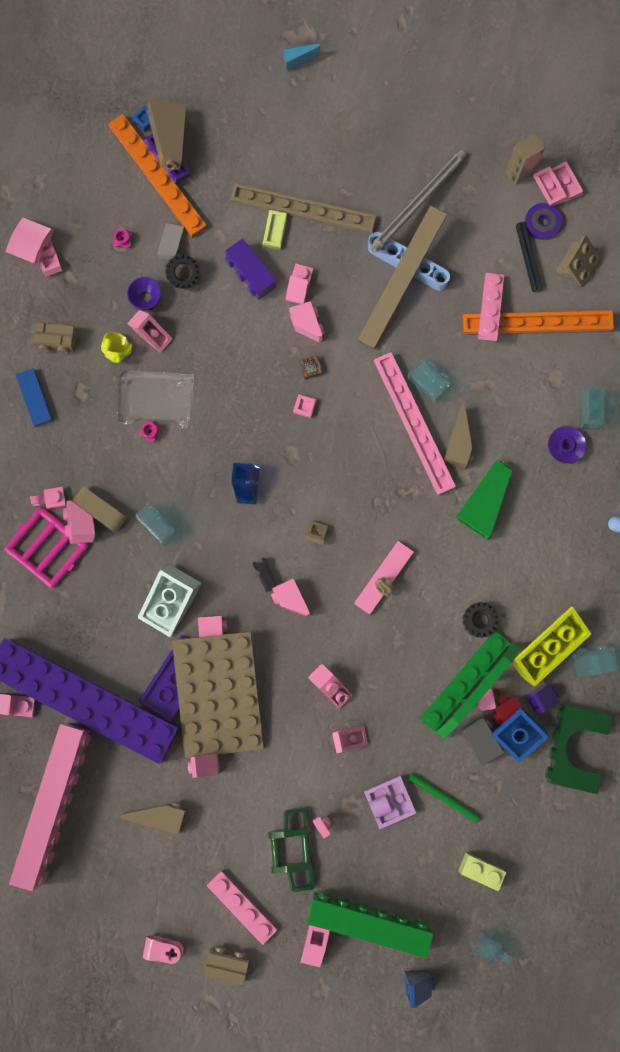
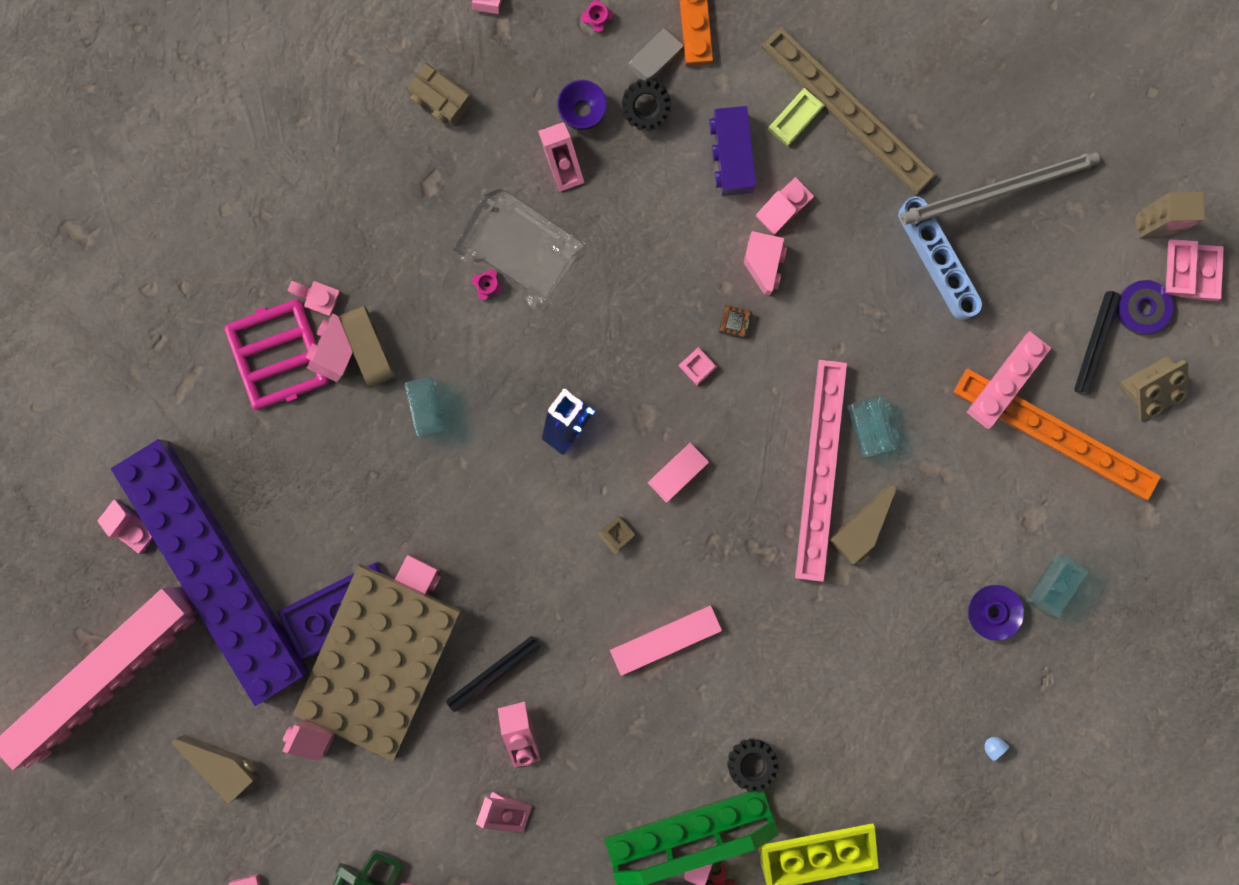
camera: 30 degrees right, 5 degrees up
(34, 397) = (369, 156): blue tile -> none
(115, 346) = (506, 152): neon yellow hair -> none
(169, 599) = (387, 509): light aqua slope -> none
(265, 576) = (521, 551): black bar -> none
(290, 598) = (534, 597): bright pink slope -> none
(292, 660) = (493, 673): none -> black axle
(331, 474) = (678, 472): none -> bright pink slope
(384, 586) = (658, 653): dark tan plate -> none
(402, 277) = (920, 275): dark tan tile -> none
(484, 504) = (849, 622): green slope -> none

